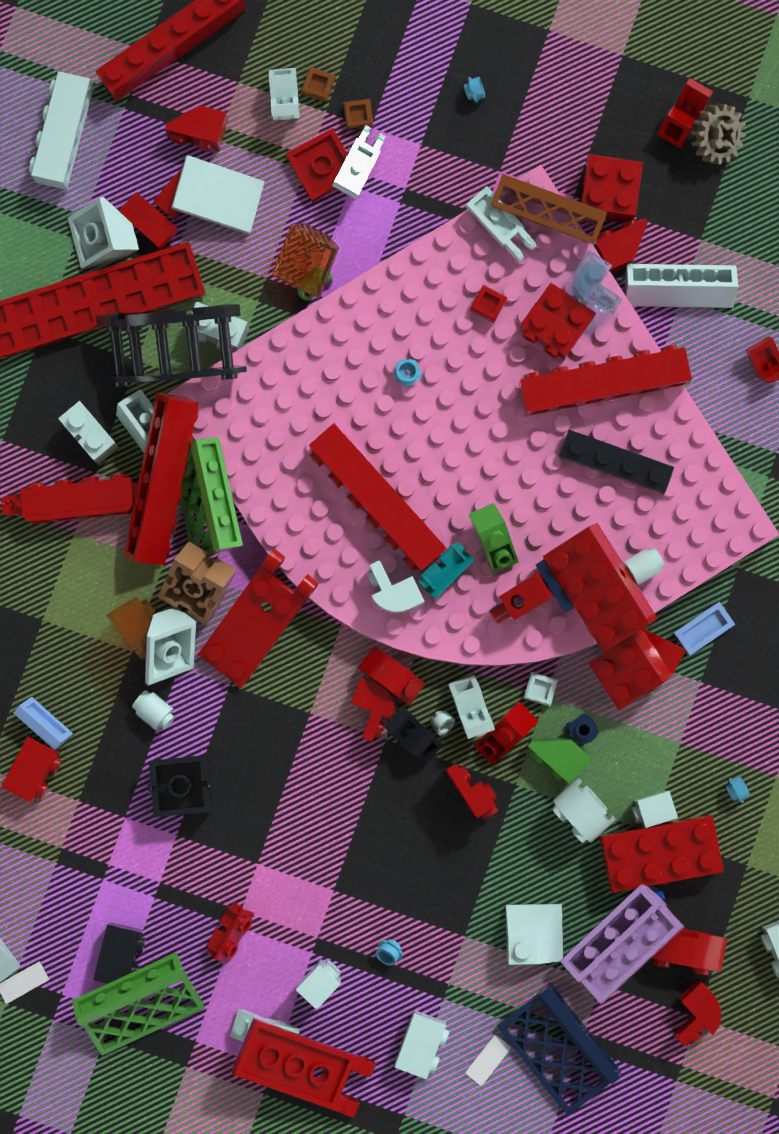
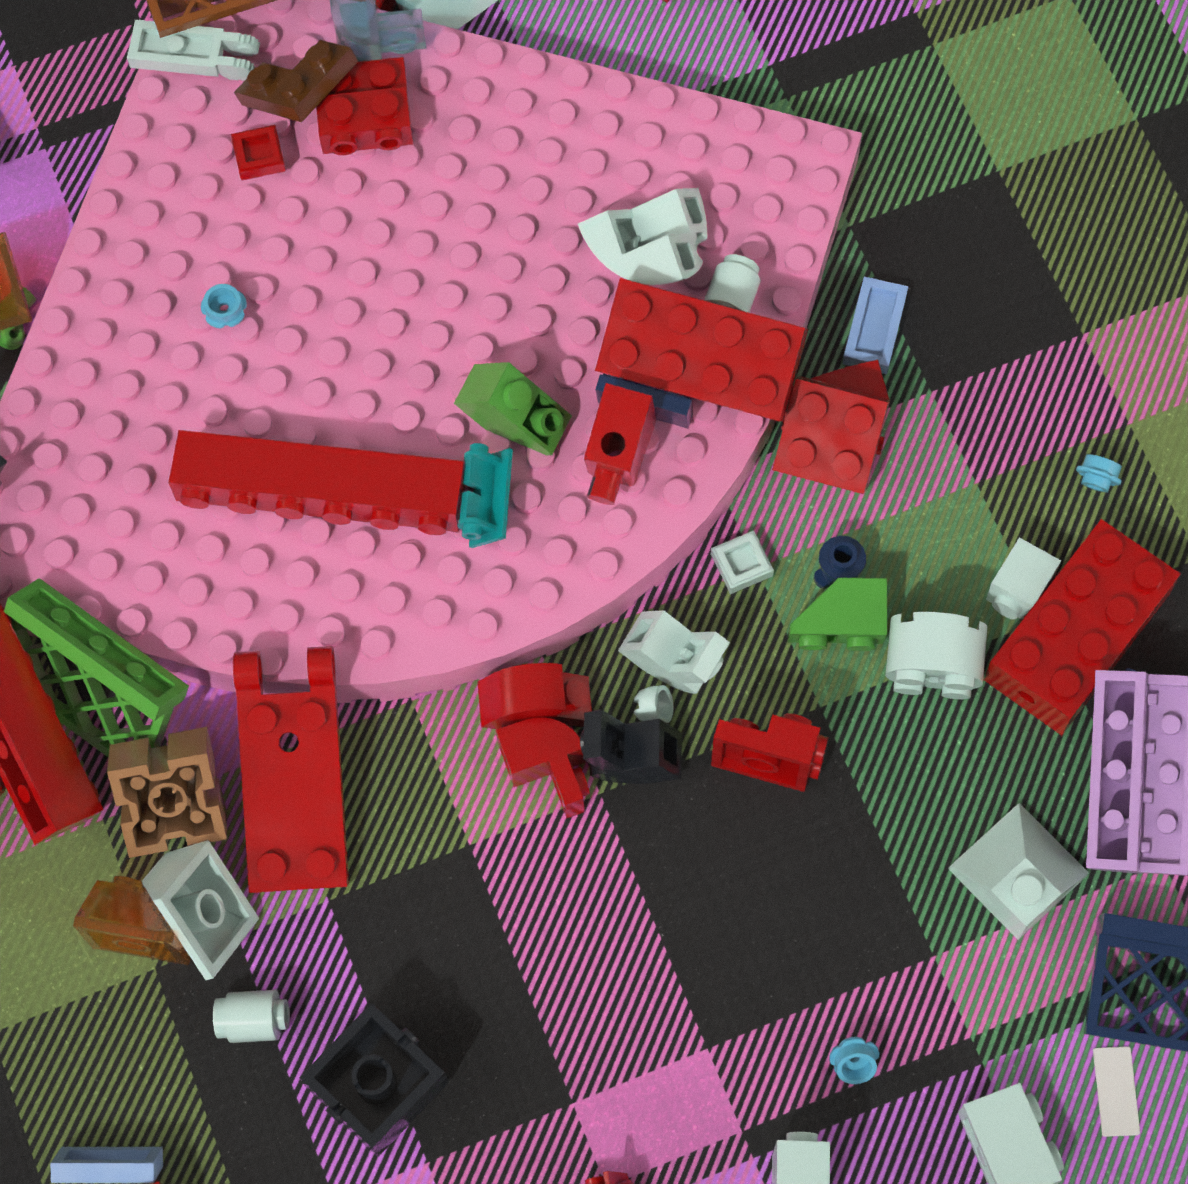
camera: 35 degrees left, 15 degrees down
(396, 598) = (449, 583): light aqua brick -> none
(507, 733) = (750, 650): red slope -> none
(534, 292) = (299, 90): none -> reddish brown plate
(604, 381) = (483, 122): red brick -> none
(616, 461) = (559, 210): black plate -> none
(627, 510) = (651, 241): none -> light aqua brick

